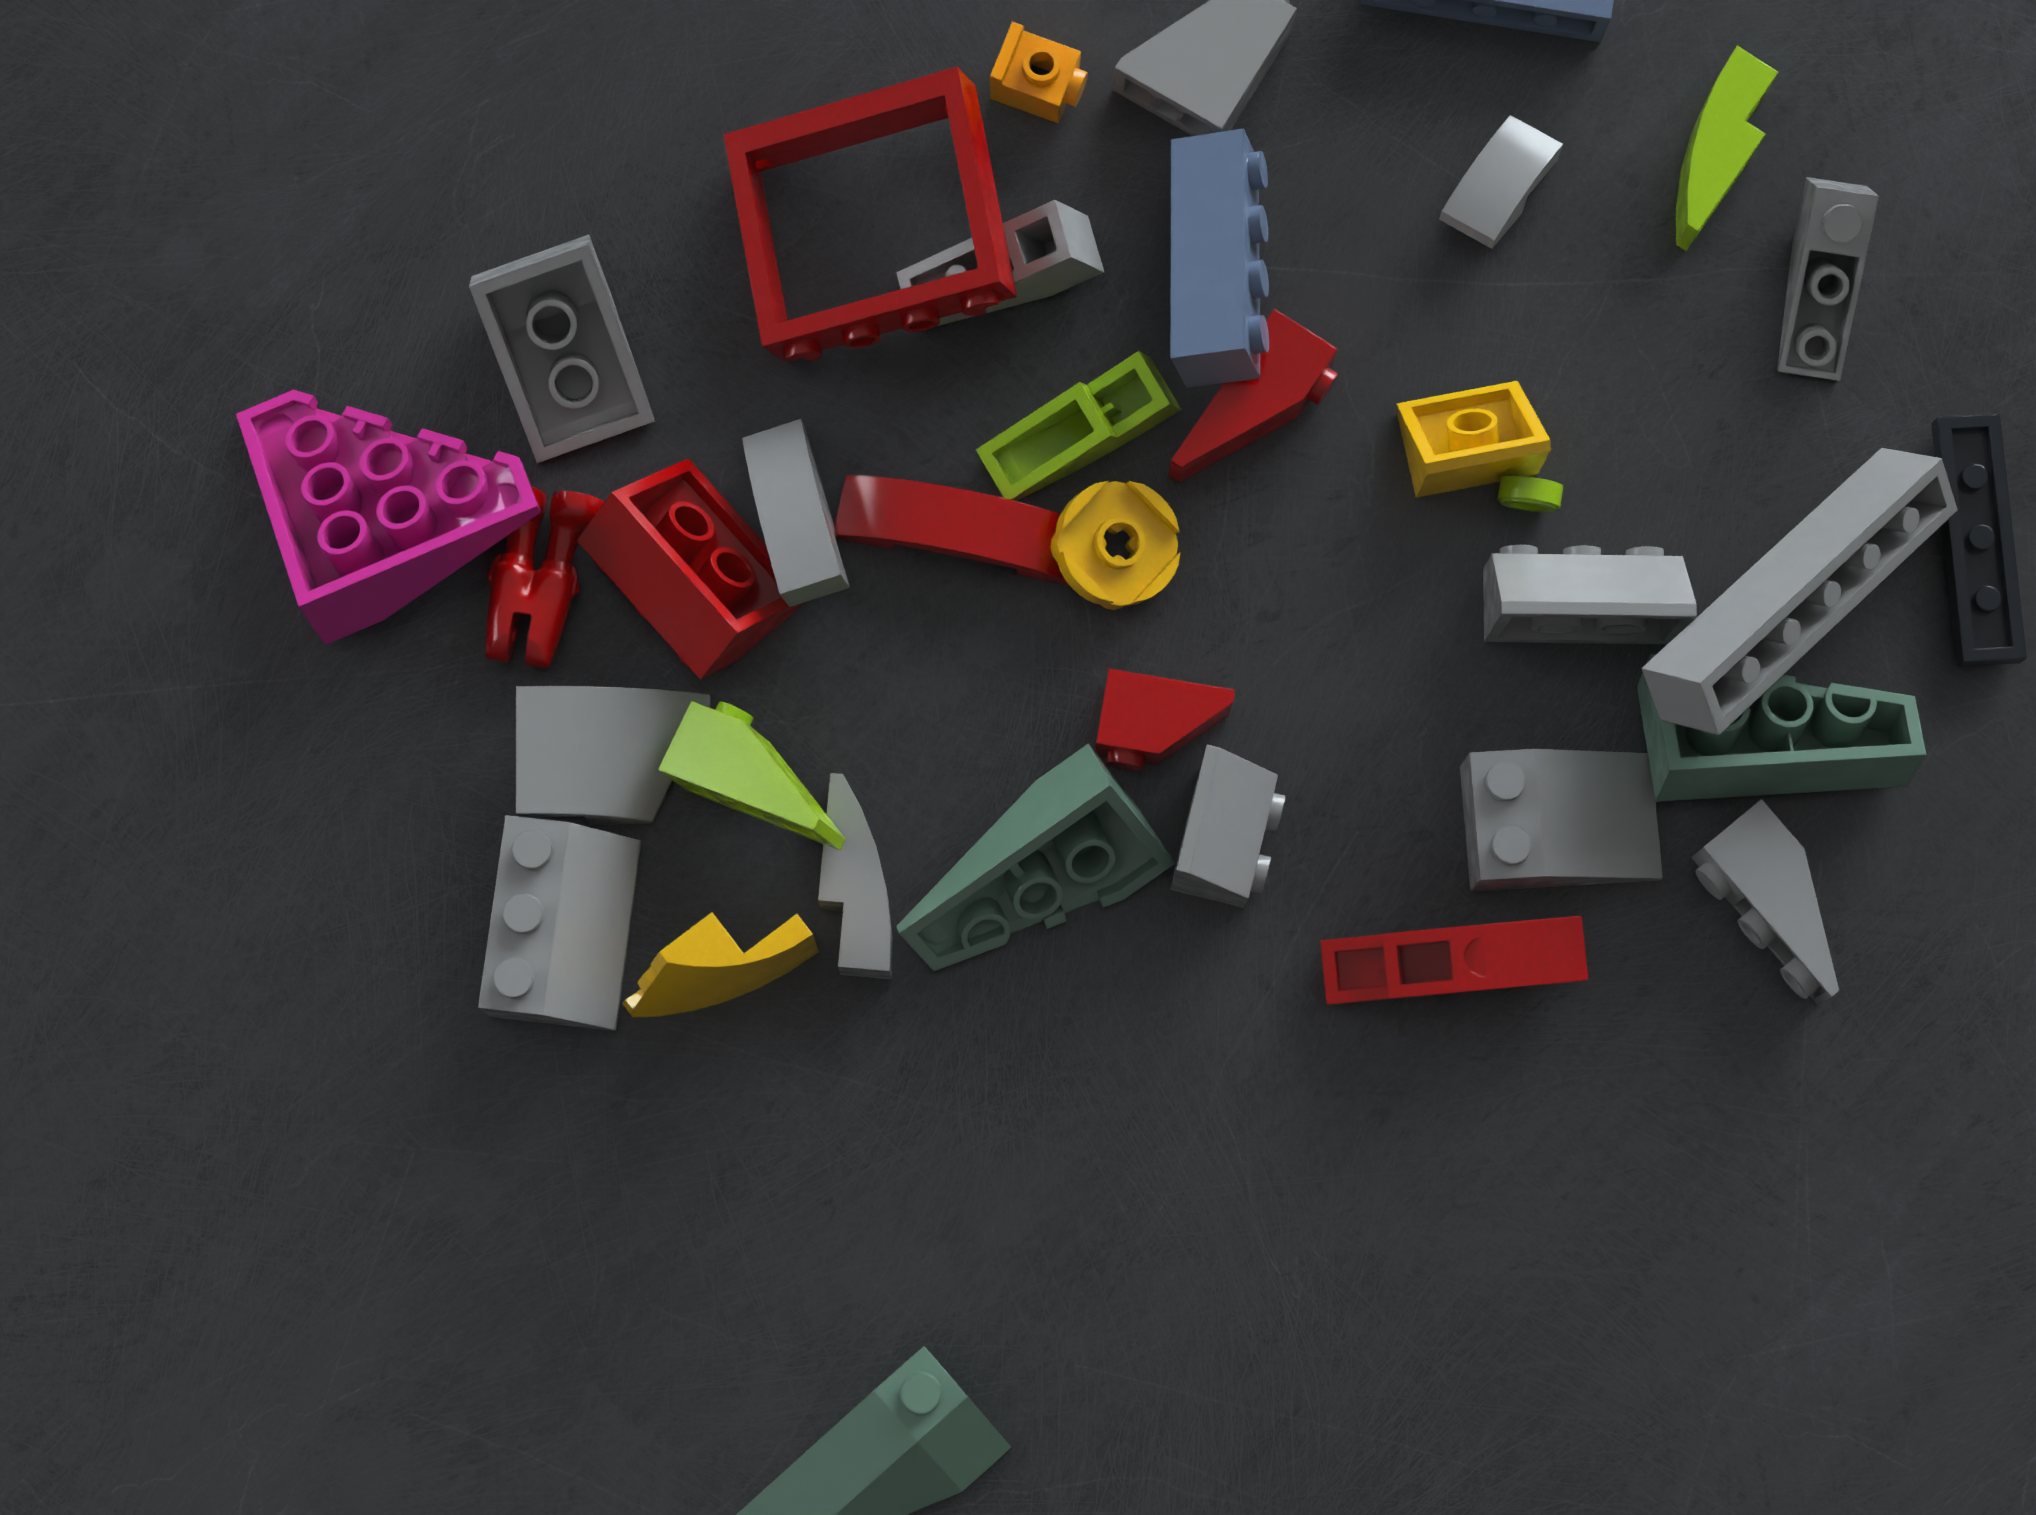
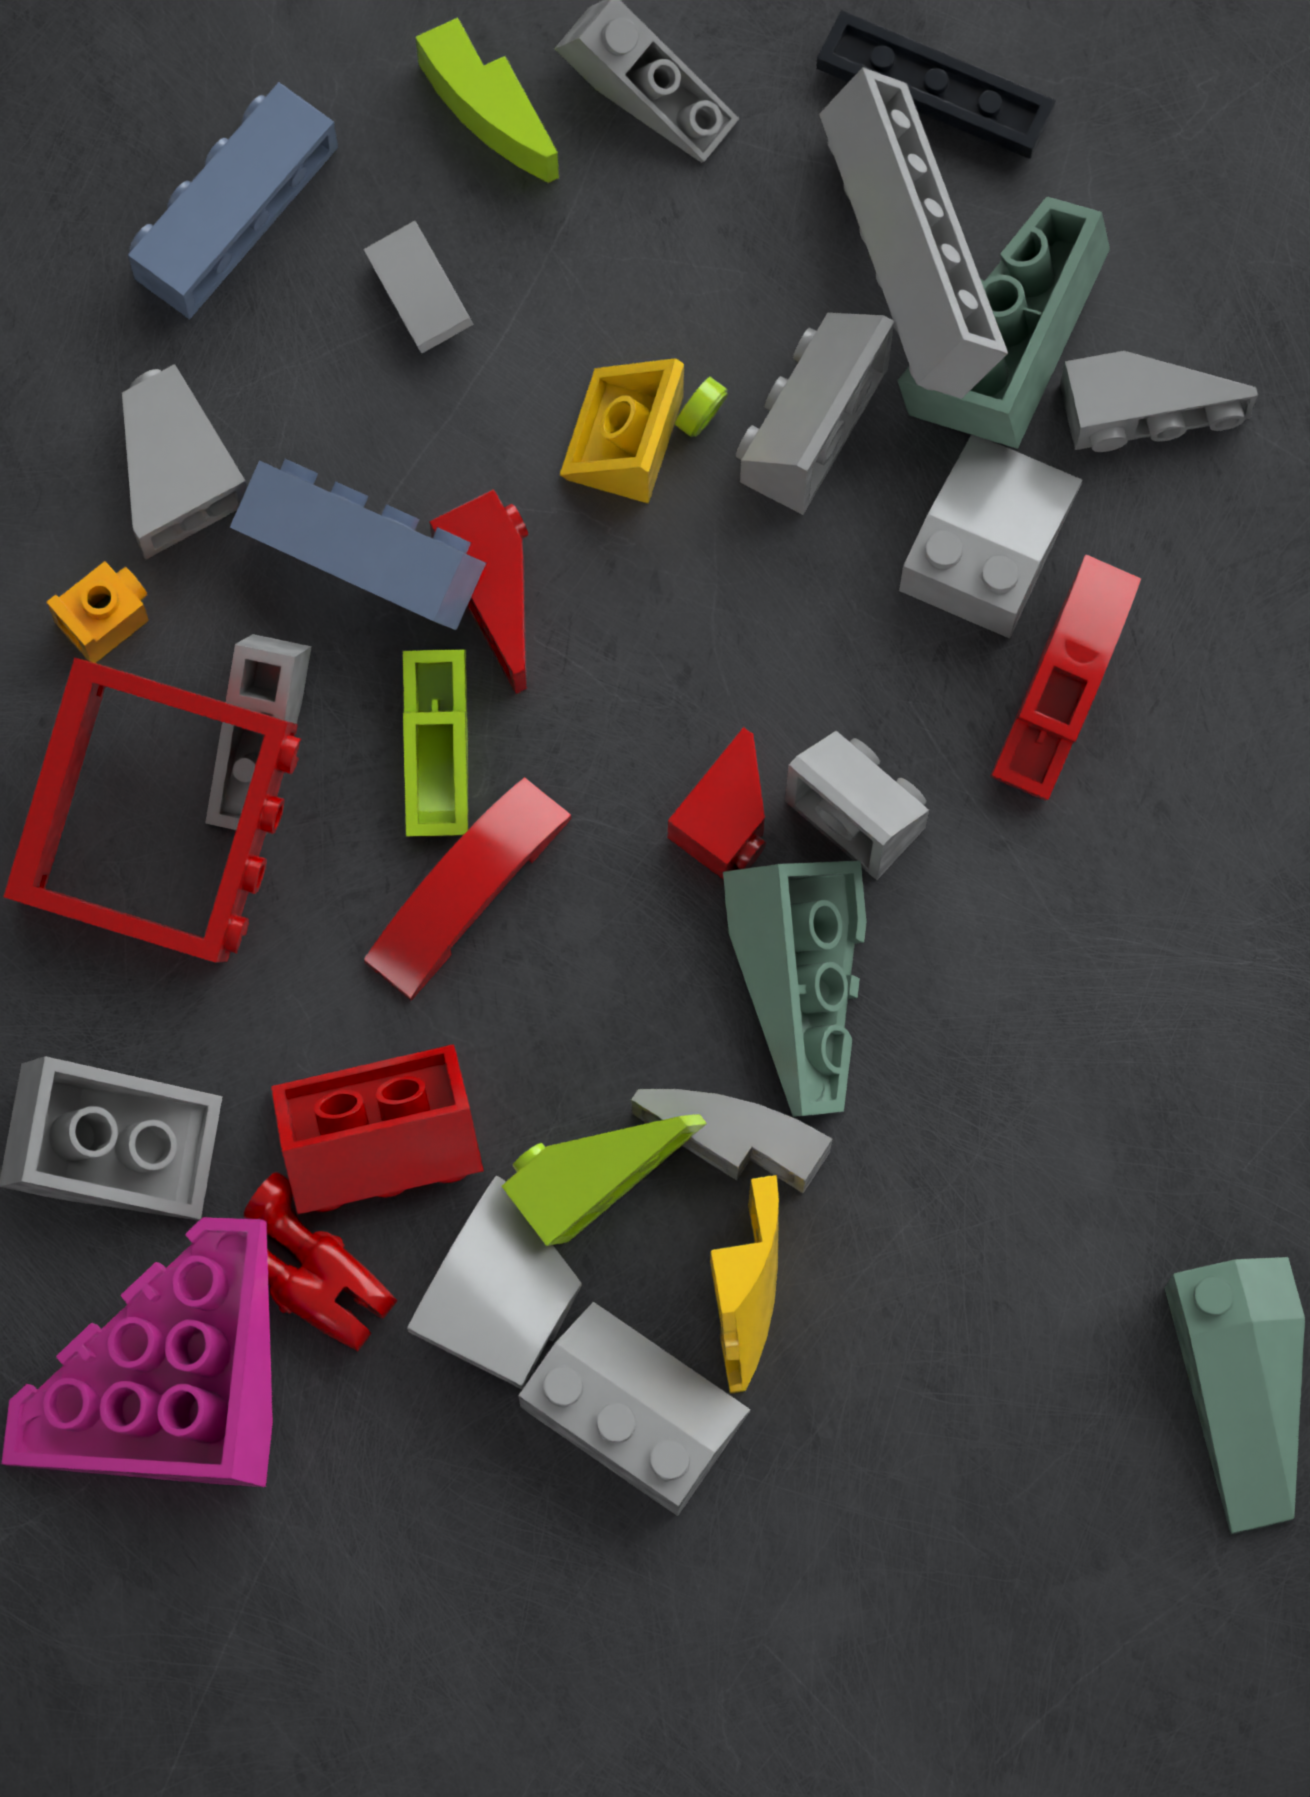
camera: 60 degrees left, 5 degrees down
(794, 513) = (377, 1014): light grey slope -> none
(1152, 543) = (551, 792): yellow plate -> none

